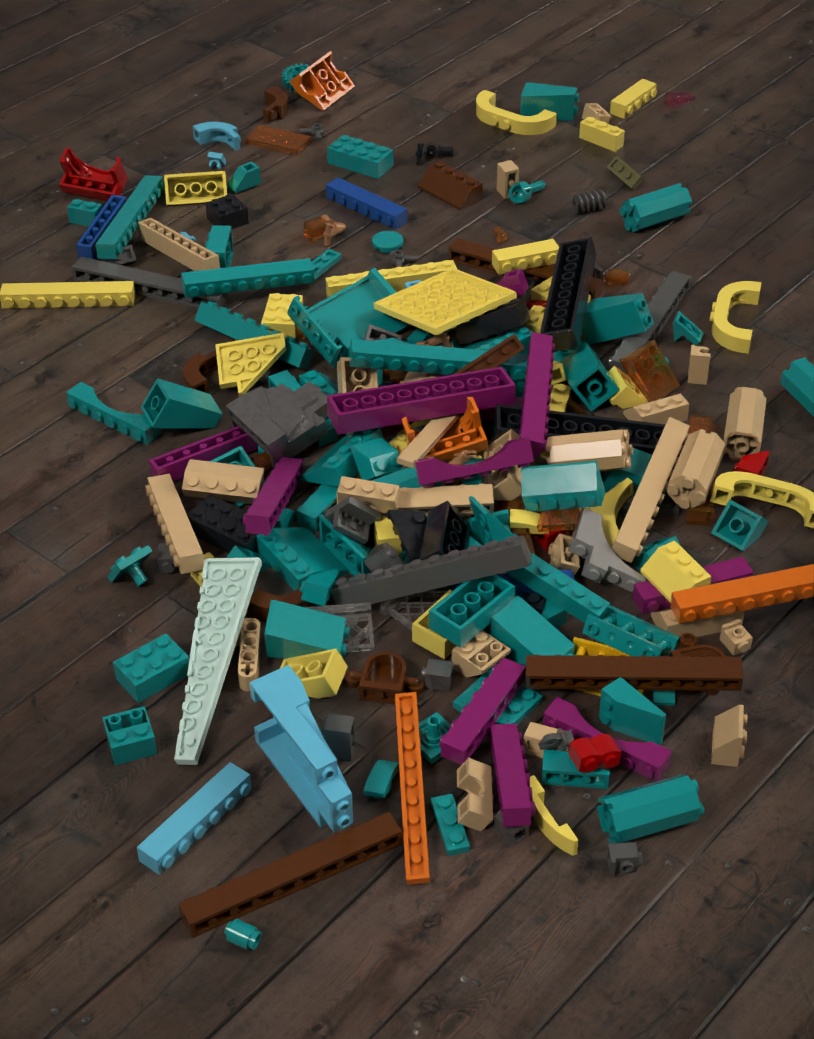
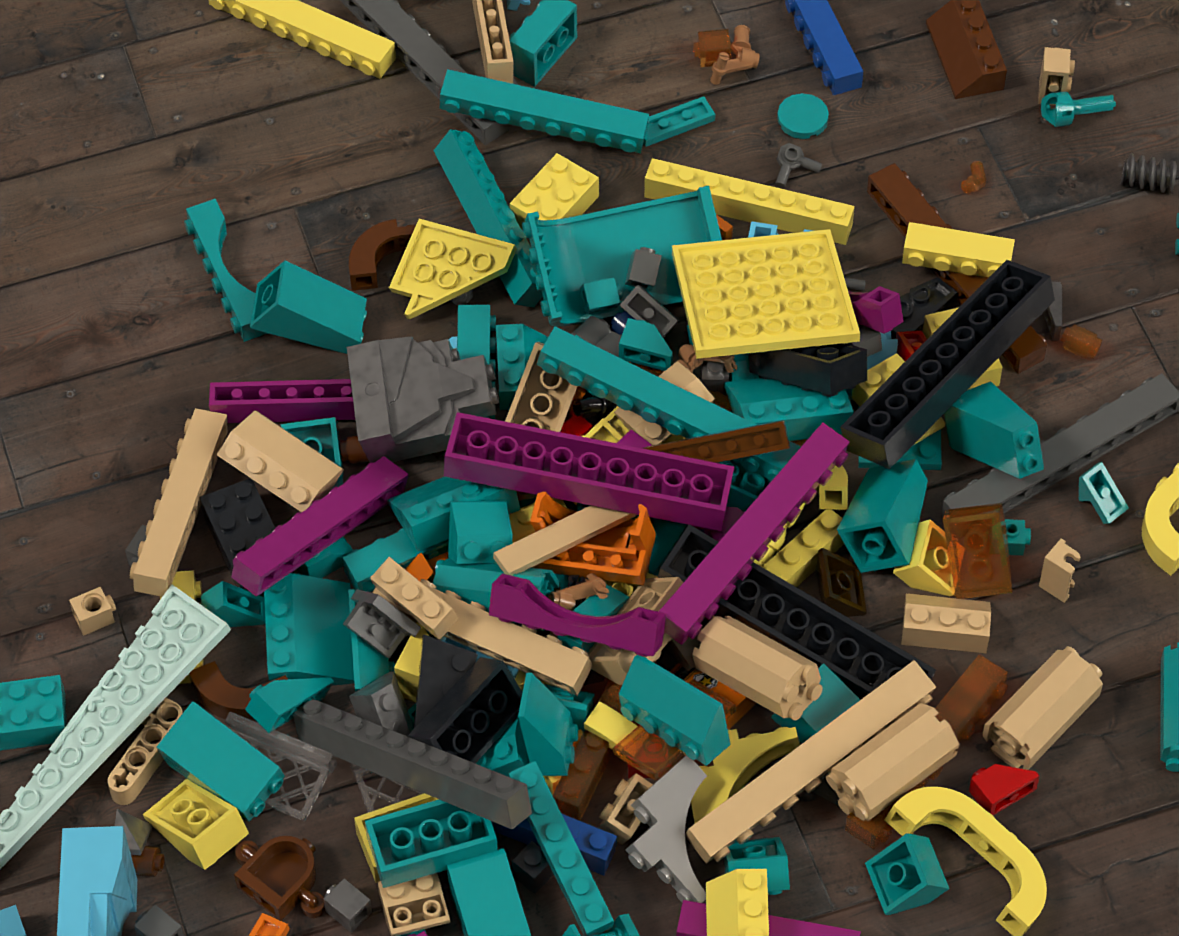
camera: 30 degrees right, 15 degrees up
(131, 565) = (90, 545): teal plate -> none
(157, 600) = (88, 620): none -> tan brick
(361, 319) = (643, 268): none -> dark grey brick
(554, 614) = (545, 892): teal slope -> none

